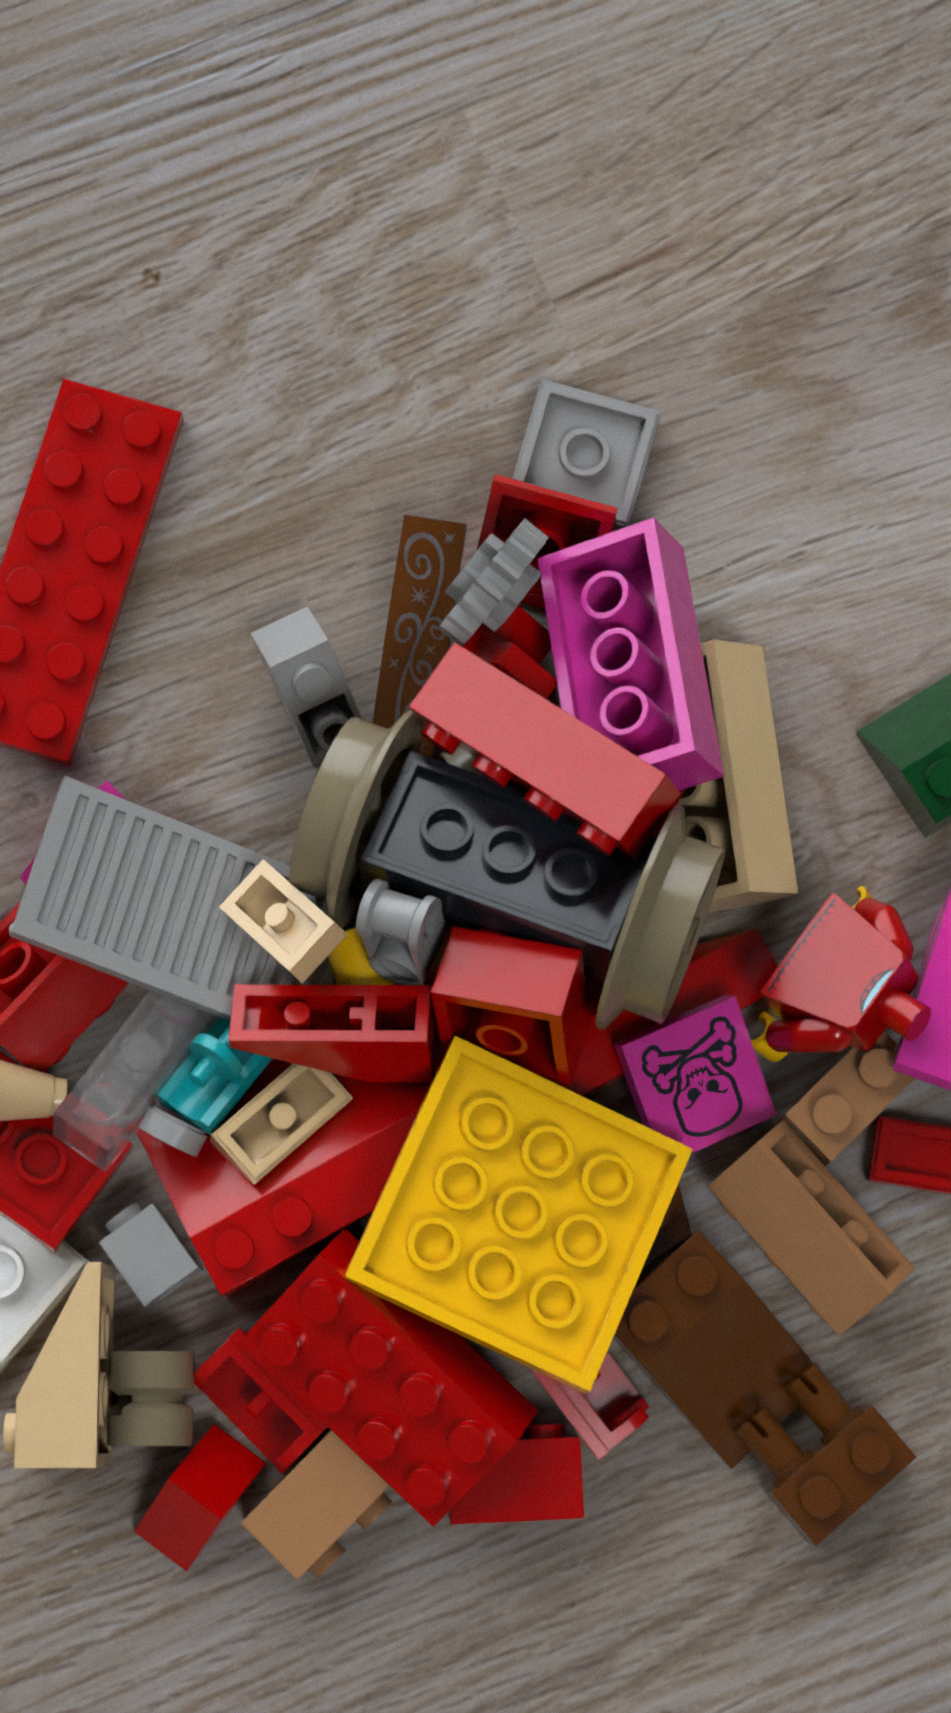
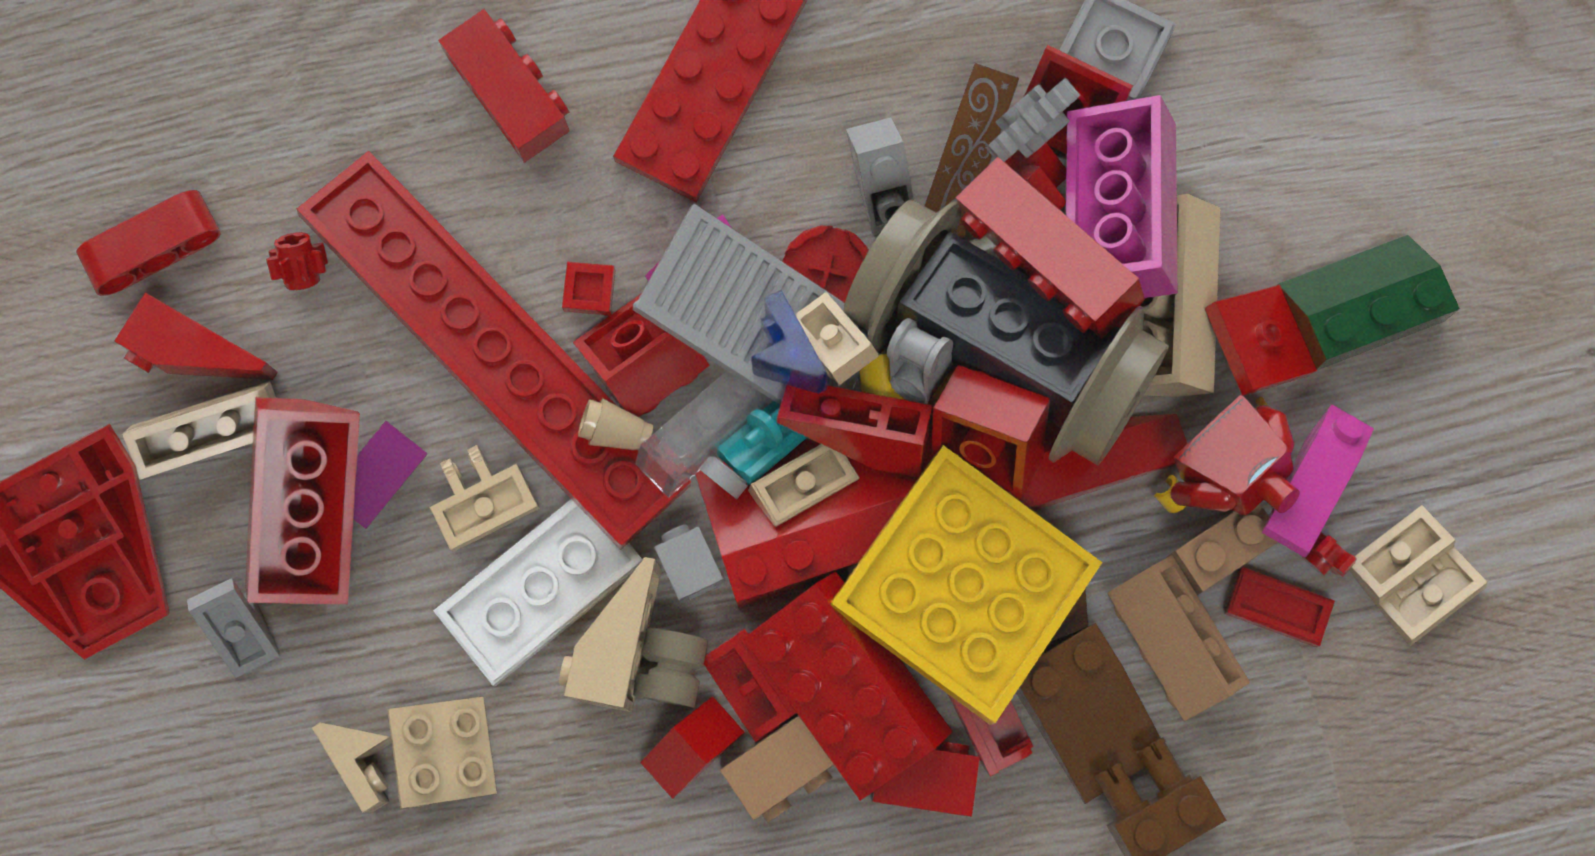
camera: 15 degrees right, 0 degrees up
(235, 959) = (792, 354): none -> clear blue slope
(257, 810) = (827, 258): none -> red tile
(697, 1075) = (1114, 510): dark pink tile -> none
(847, 811) = (1260, 339): none -> red plate

